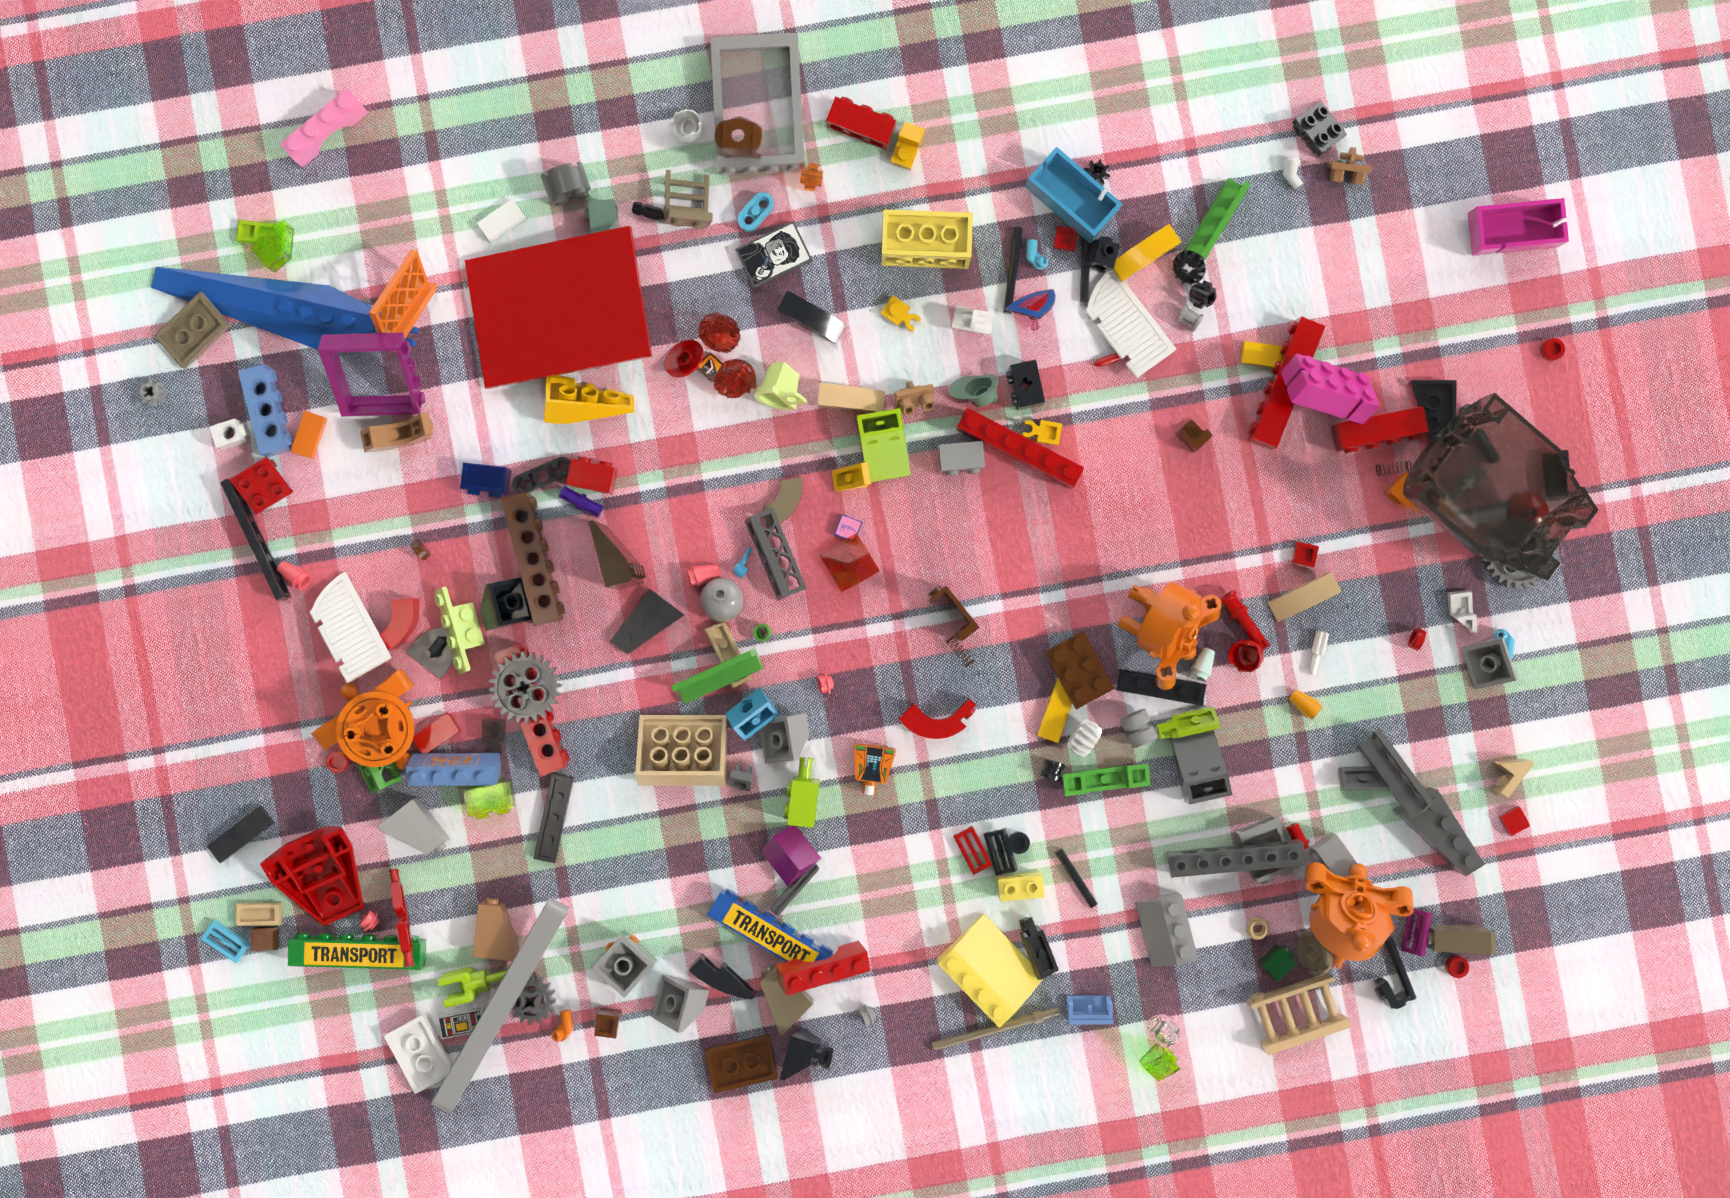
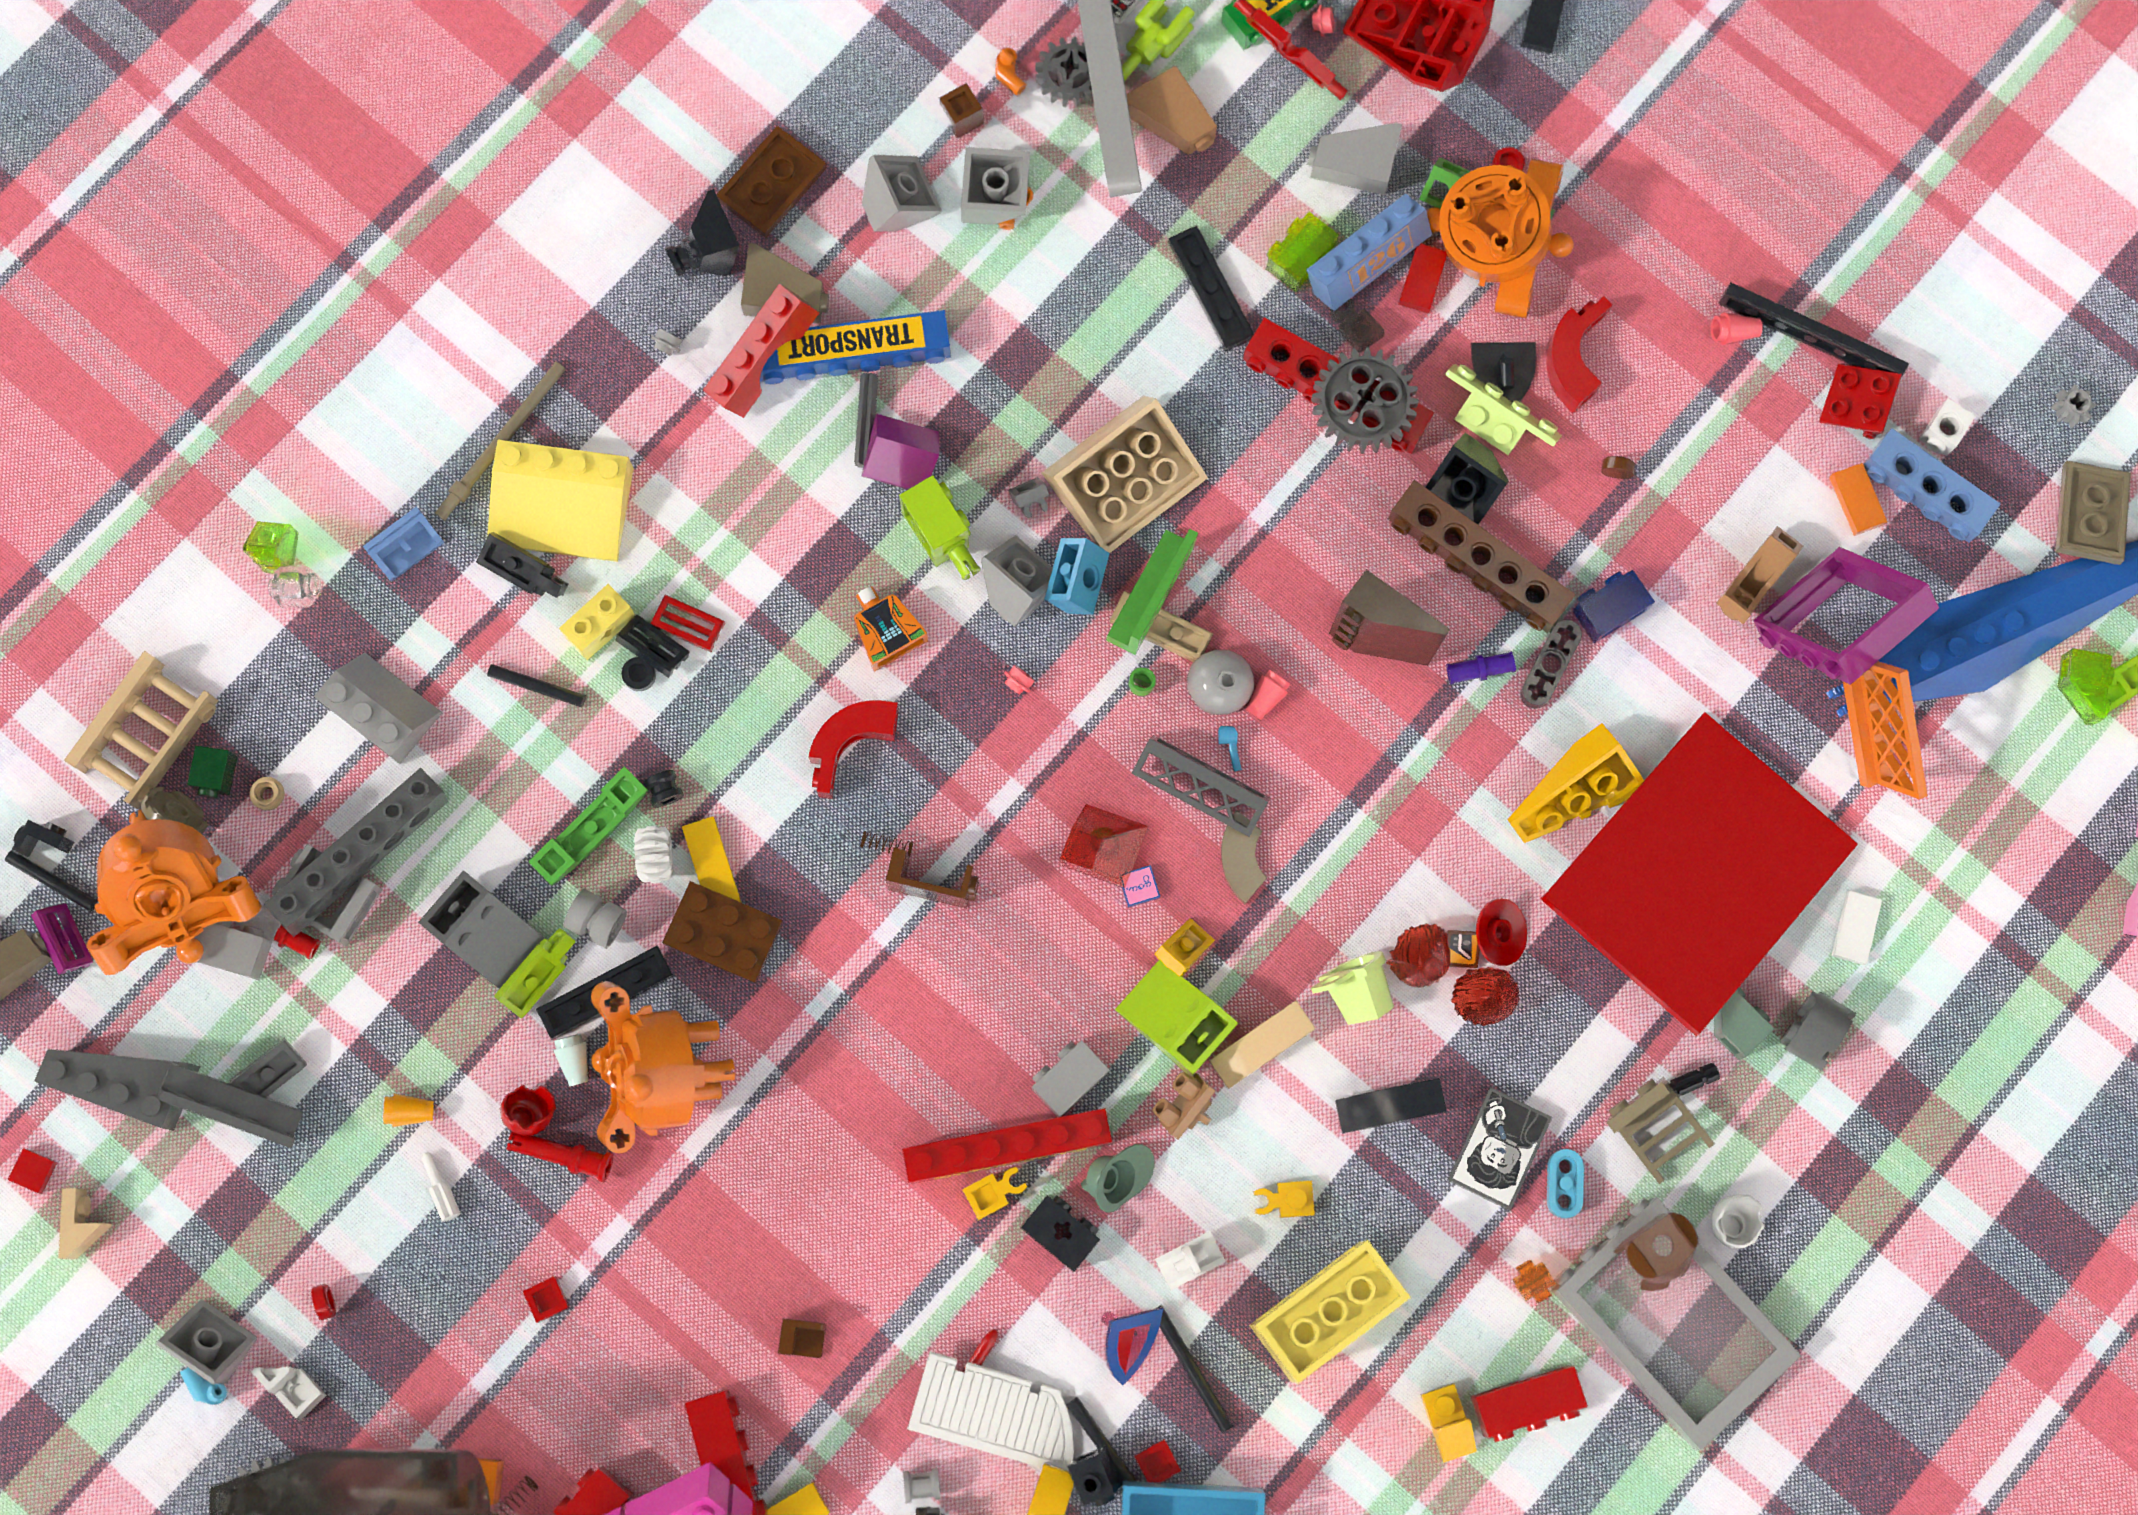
camera: 135 degrees right, 10 degrees down
(348, 629) = (1621, 313): white piece -> none
(592, 476) = (1492, 707): red brick -> none
(646, 620) = (1289, 590): black wing -> none
(721, 978) = (869, 255): black slope -> none
(1033, 257) = (1179, 1406): medium azure arm -> none
(1304, 596) = (507, 1242): tan slope -> none

